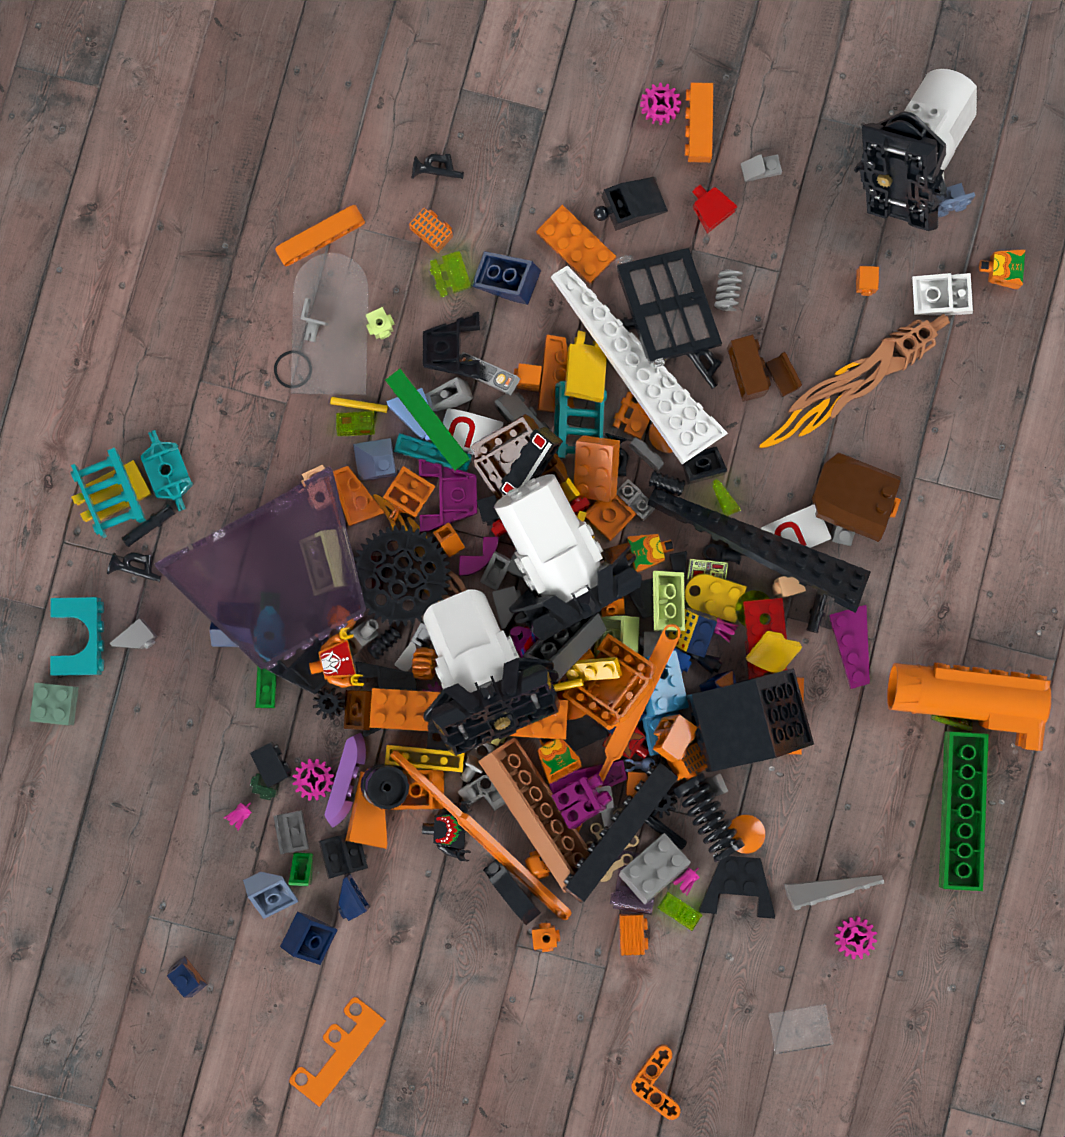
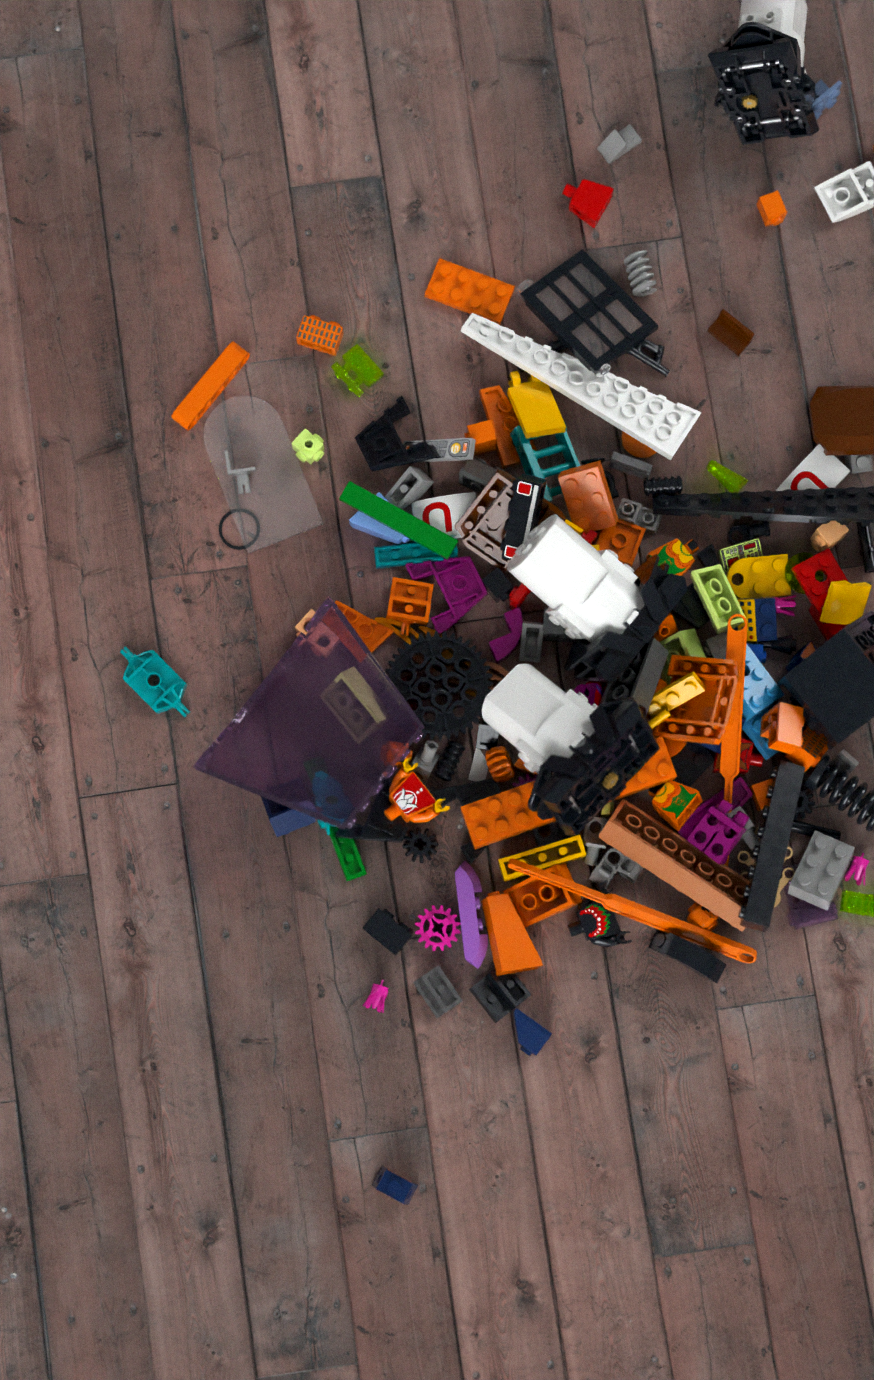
camera: 20 degrees left, 5 degrees down
(54, 704) = (139, 963): sand green brick -> none
(89, 660) = (156, 905): teal arch -> none
(116, 565) = (153, 794): black piece -> none
(127, 495) = (127, 720): teal fence -> none
(136, 636) = (194, 861): light grey slope -> none
(138, 484) = (109, 726): yellow tile -> none
(148, 525) = (164, 736): black pin -> none
(265, 793) = (394, 962): clear green bracket -> none
(269, 893) = (443, 1062): sand blue slope -> none
(301, 869) = (464, 1024): green slope -> none
(308, 938) = (502, 1091): dark blue slope -> none
(346, 1053) = (590, 1191): orange piece -> none
(355, 423) = (326, 556): clear neon green slope -> none
(357, 710) = (453, 838): reddish brown tile -> none
(359, 404) = (321, 536): yellow piece -> none
(375, 459) = (361, 583): sand blue slope -> none
(390, 778) = (515, 901): black wheel -> none
(419, 168) = (289, 276): black piece -> none
(449, 539) = (471, 630): orange brick -> none
(503, 600) = (553, 668): light grey slope -> none
(506, 277) = (415, 350): dark blue slope -> none
(539, 932) = (736, 993): orange brick -> none
(632, 934) = (827, 947): orange brick -> none
(635, 203) = (506, 229): black slope -> none
(638, 421) = (606, 437): orange plate -> none
(644, 764) = (763, 773): light blue arm -> none
(659, 95) = (486, 116): dark pink gear -> none
(700, 122) = (540, 123): orange brick -> none
(704, 466) = (692, 454): black slope -> none
(748, 367) = (694, 339): reddish brown brick -> none
(843, 376) = (828, 283): nougat piece -> none

